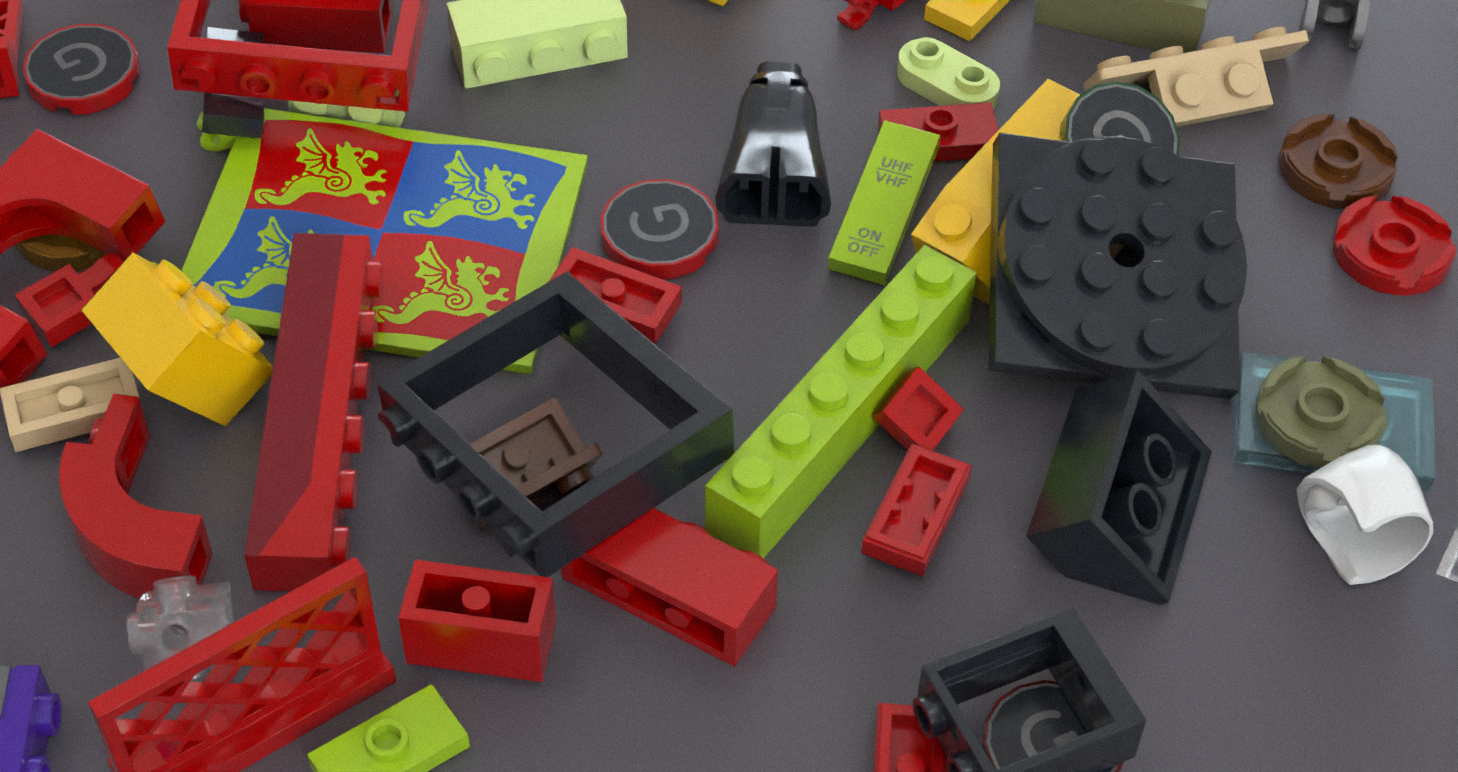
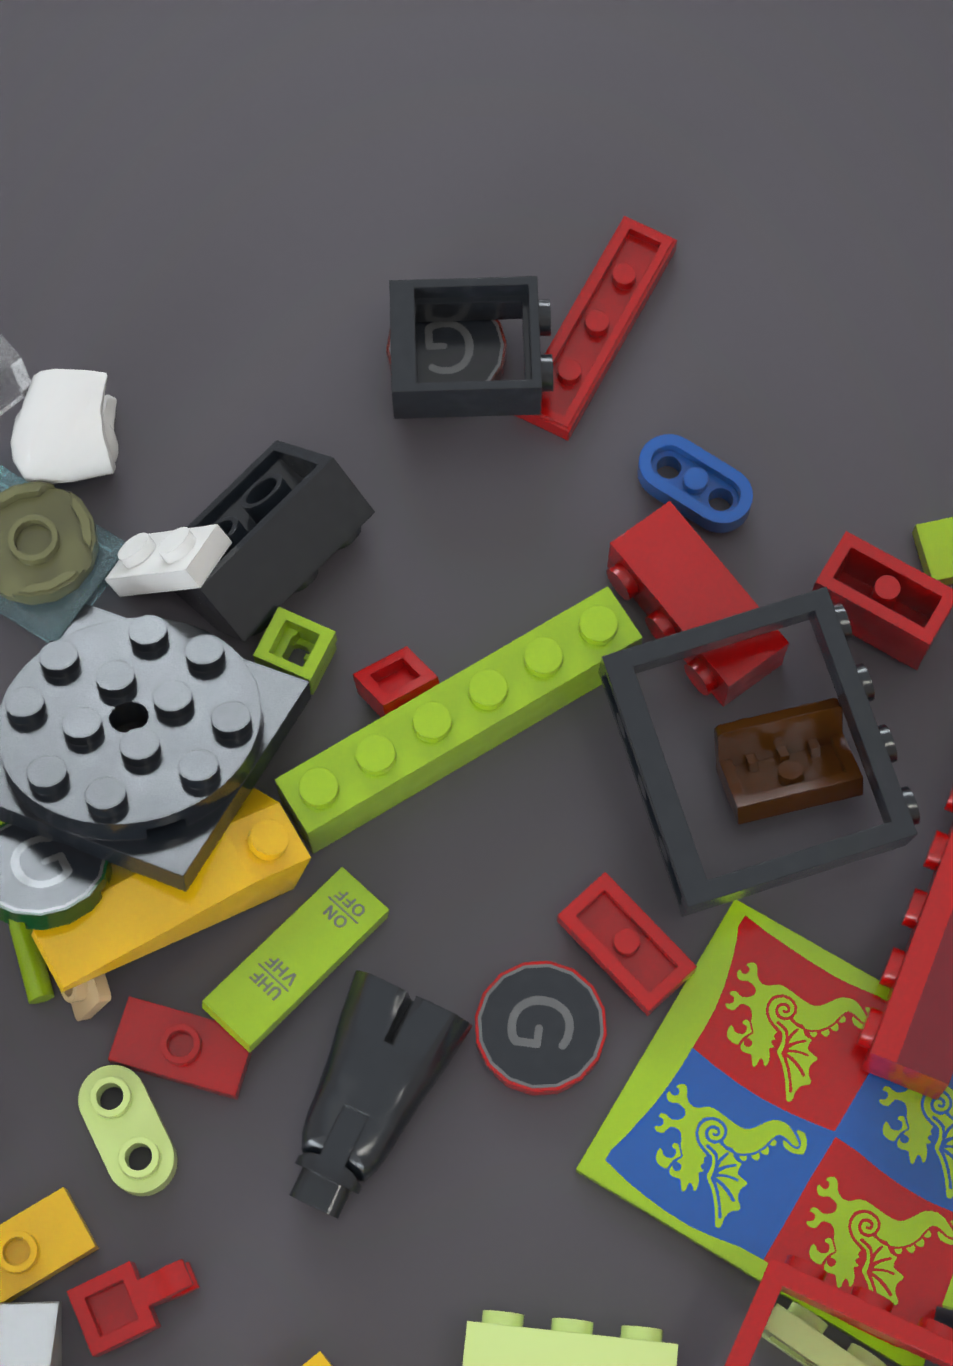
camera: 155 degrees left, 20 degrees up
(722, 692) = (698, 482): none -> blue plate
(916, 509) = (446, 593): red plate -> none
(1026, 411) = (291, 632): none -> lime piece
(1187, 417) = (168, 560): none -> white plate

